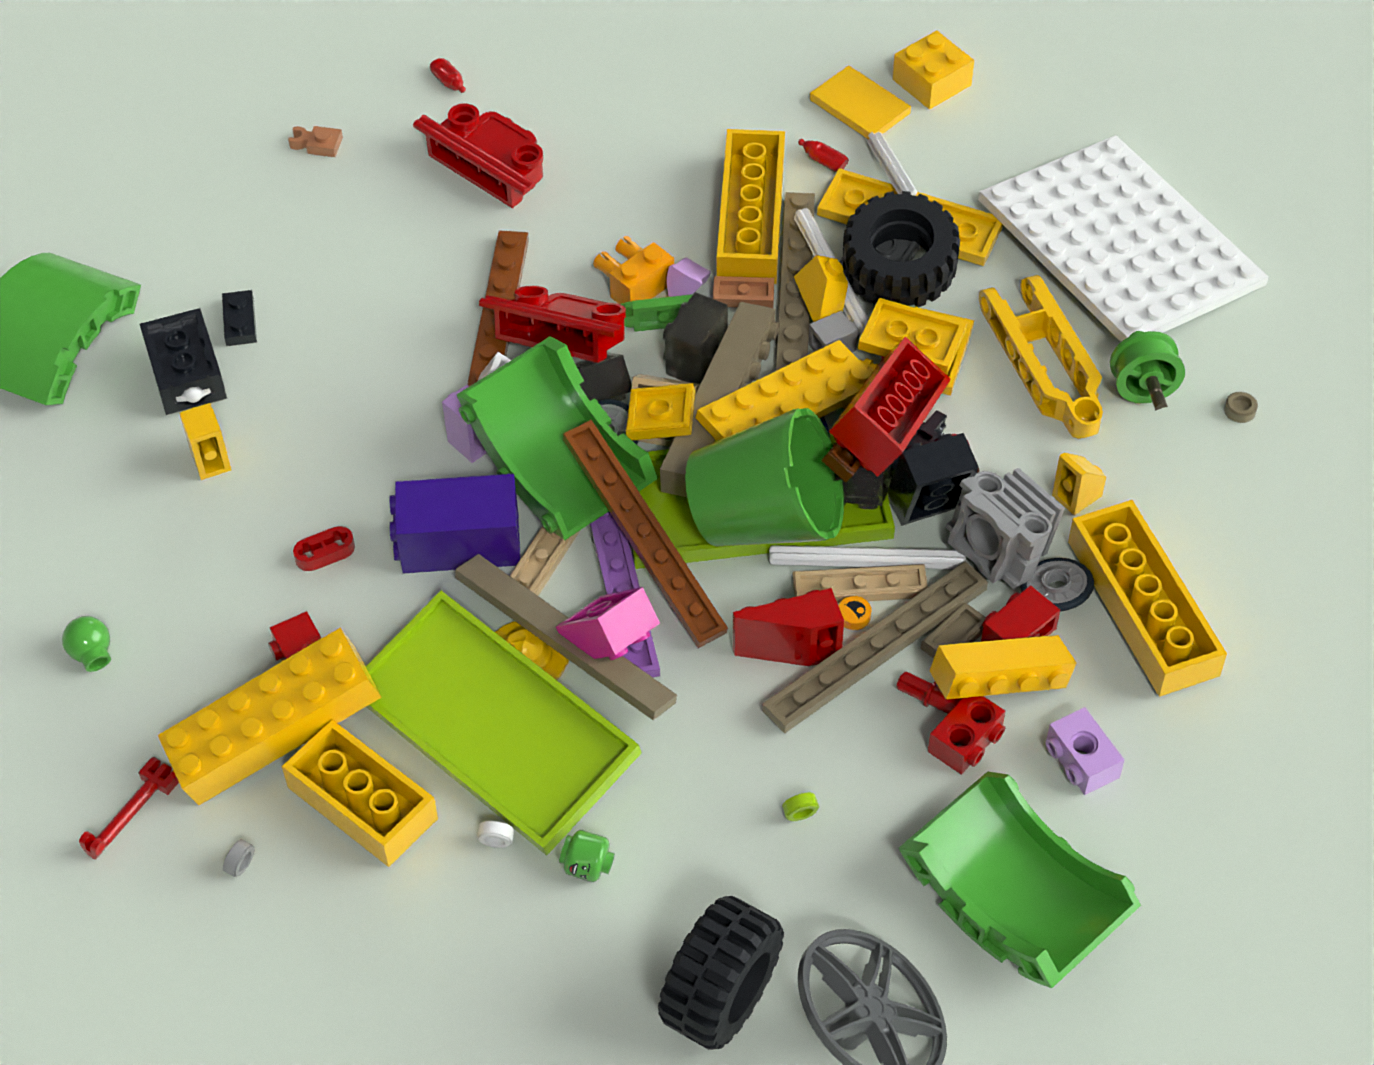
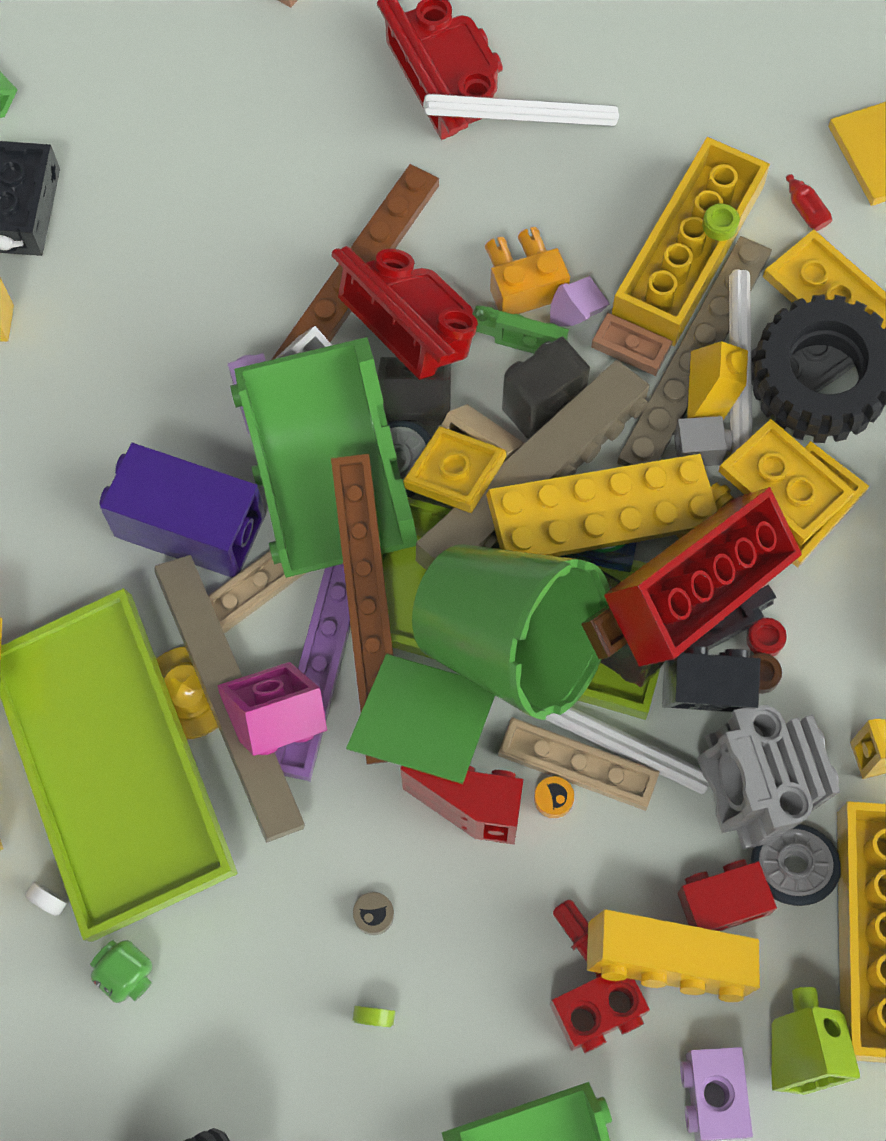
camera: 25 degrees right, 15 degrees up
(239, 318) = (100, 164): black plate -> none
(324, 548) = (48, 475): red beam -> none
(569, 161) = (520, 110): none -> white axle
(731, 582) = (422, 719): none -> bright green piece
(760, 743) = (373, 913): none -> dark tan tile
(770, 180) = (720, 222): none -> lime tile
(874, 647) = (555, 851): dark tan plate -> none
(890, 163) = (873, 252): white axle -> none
(960, 627) = (650, 873): dark tan tile -> none
(1134, 689) = (811, 1047): none -> lime torso

